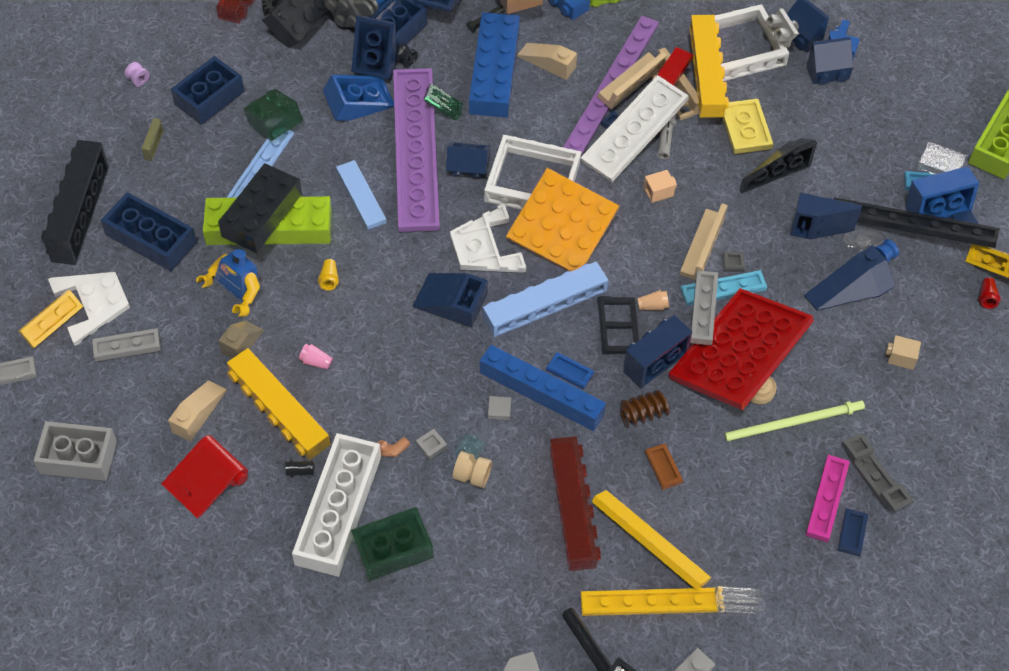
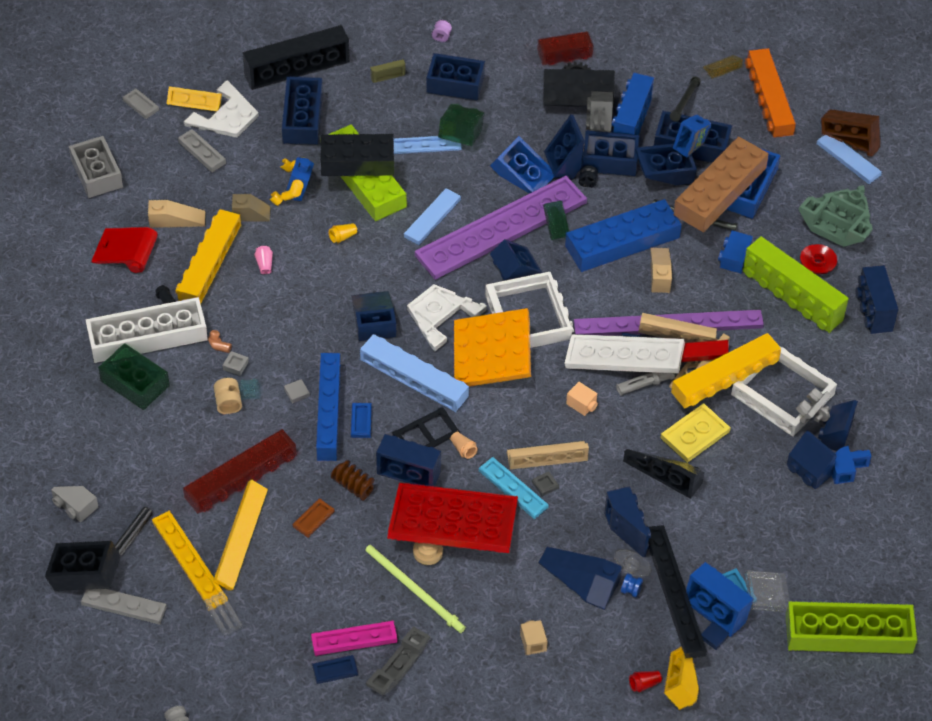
camera: 60 degrees right, 5 degrees down
(704, 307) = (475, 476): light grey plate -> none

